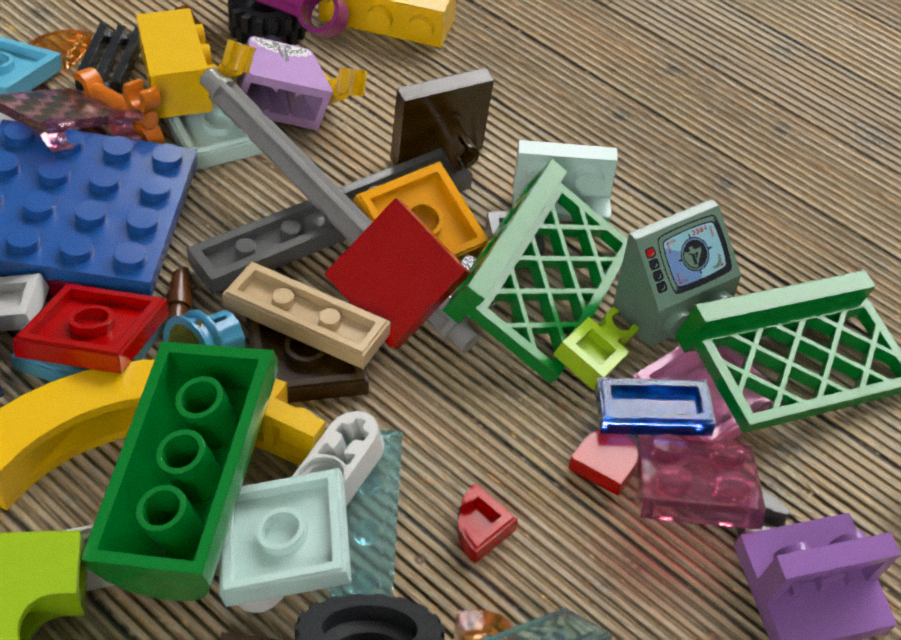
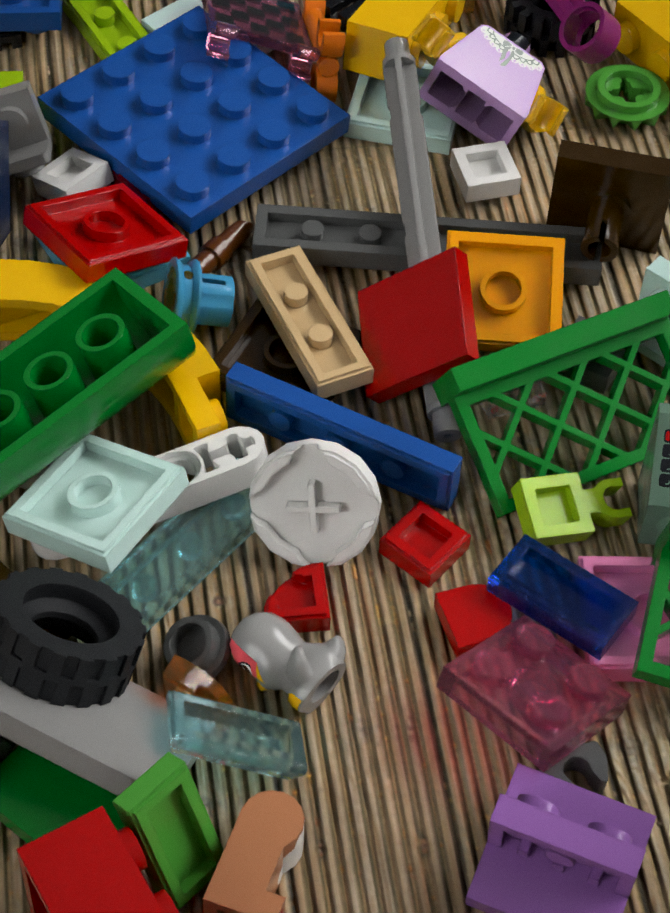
camera: 40 degrees right, 5 degrees up
(328, 144) = (485, 171): none -> white plate
(382, 48) = (644, 89): none -> bright green gear
(407, 383) = (297, 415): none -> blue tile
(446, 439) = (315, 503): none -> white tile
(450, 593) = (199, 641): none -> dark grey plate
(518, 569) = (282, 660): none -> light grey animal
(525, 428) = (424, 544): none -> red tile

